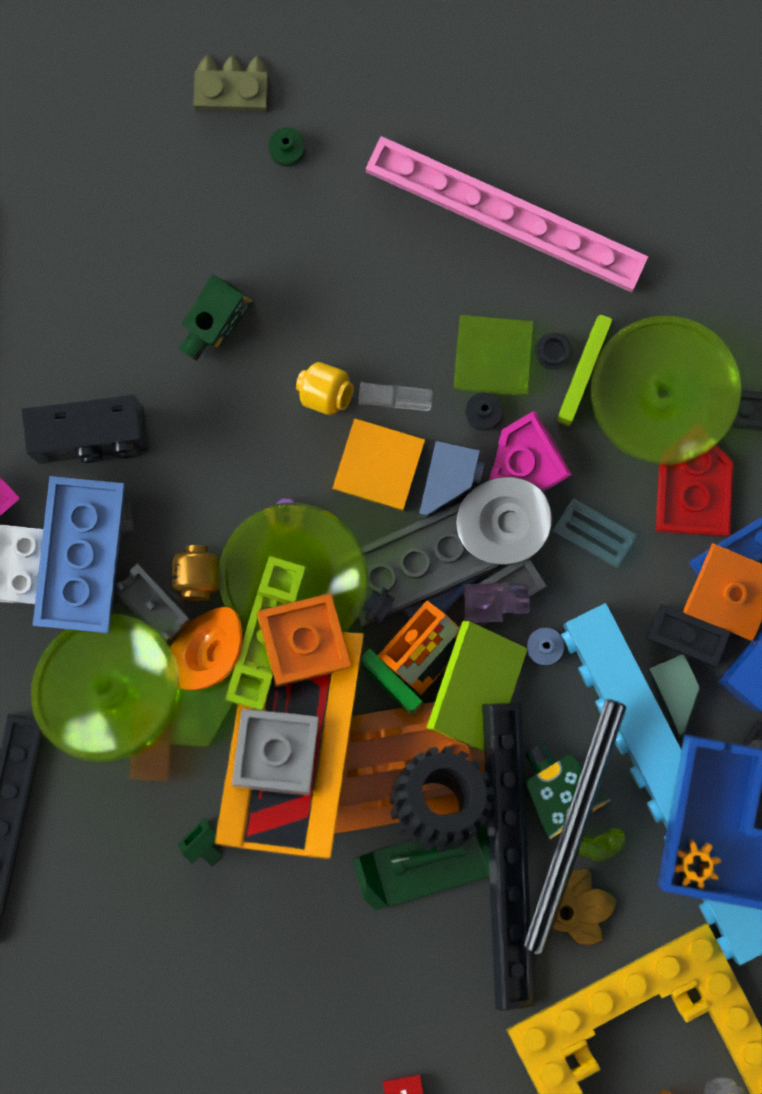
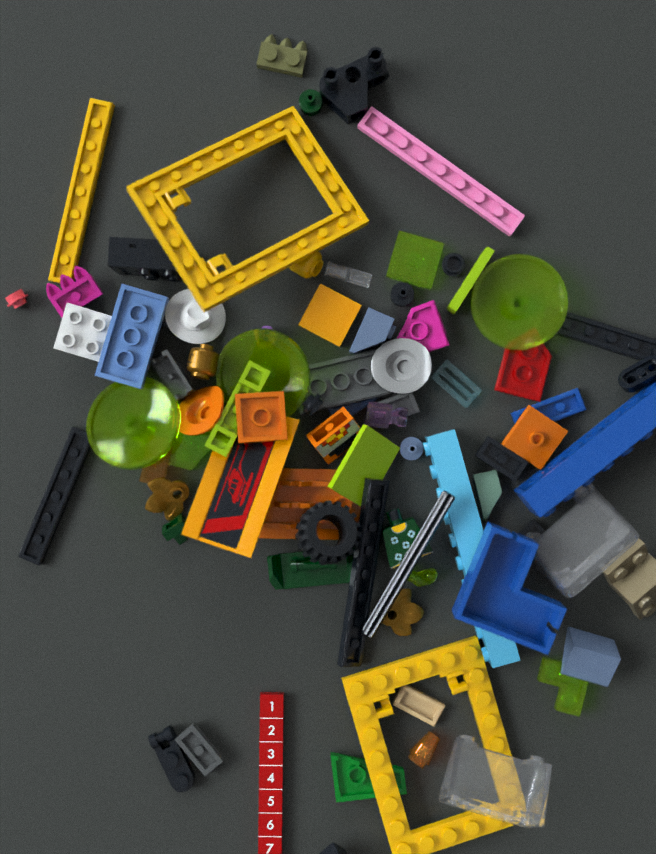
camera: 10 degrees right, 5 degrees up
(170, 505) = (190, 323): none -> white hat
(173, 799) = (163, 498): none -> pearl gold plate
(177, 446) = (201, 277): none -> yellow plate
(225, 305) = (251, 196): dark green torso -> none
(275, 752) = (229, 484): light grey plate -> none
(347, 132) = (348, 98): none -> black piece
(391, 683) = (311, 453): green tile -> none
(637, 1050) = (418, 704): none -> tan tile
(706, 869) = (484, 607): light orange gear -> none

